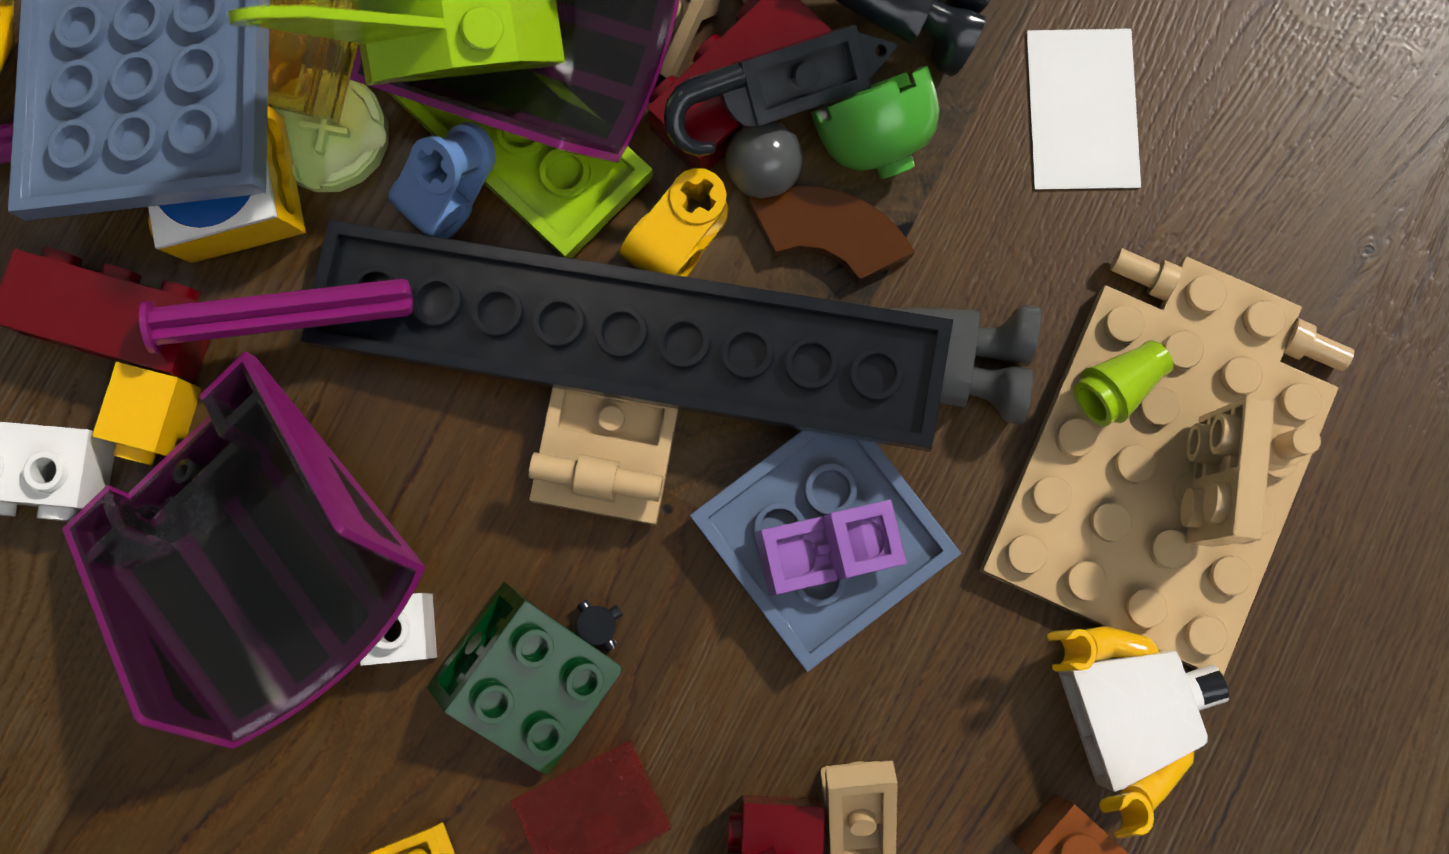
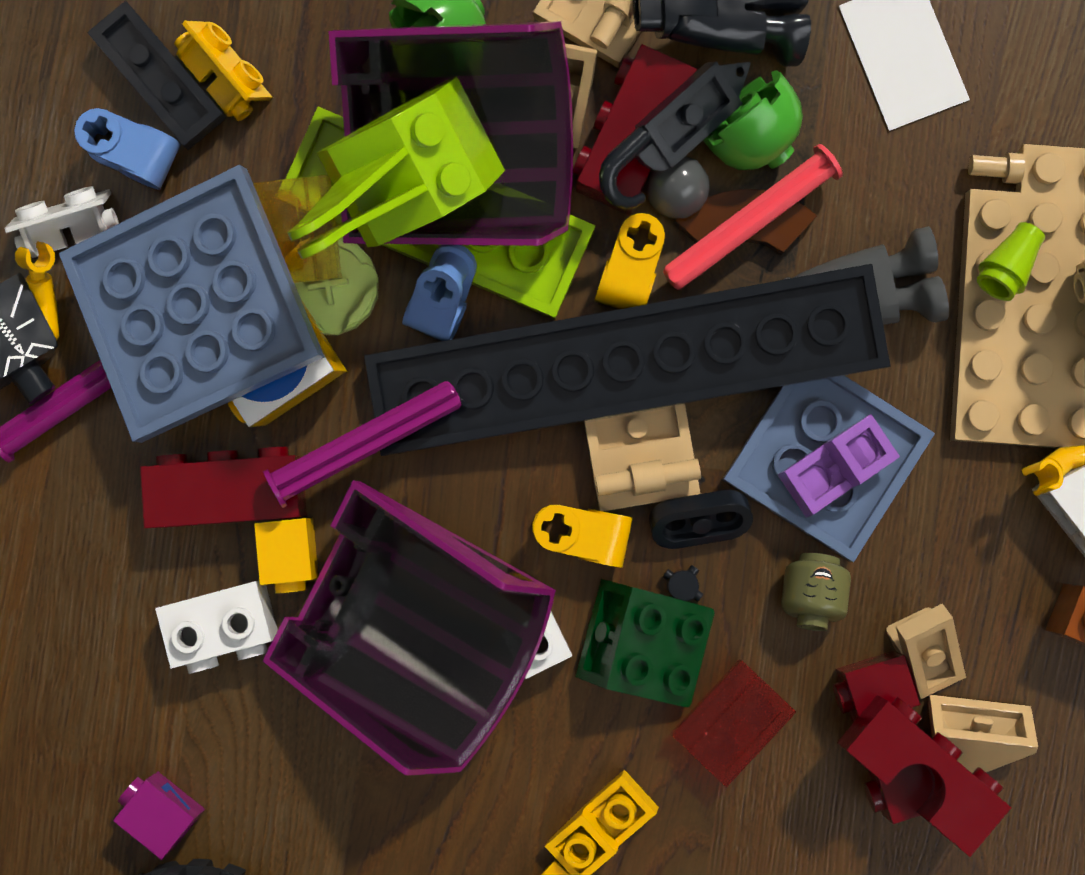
camera: 15 degrees left, 5 degrees up
(507, 524) = (591, 536): none -> yellow piece
(645, 553) = (700, 519): none -> black plate
(750, 690) = (816, 591): none -> olive head
(836, 225) = (753, 217): none -> coral axle

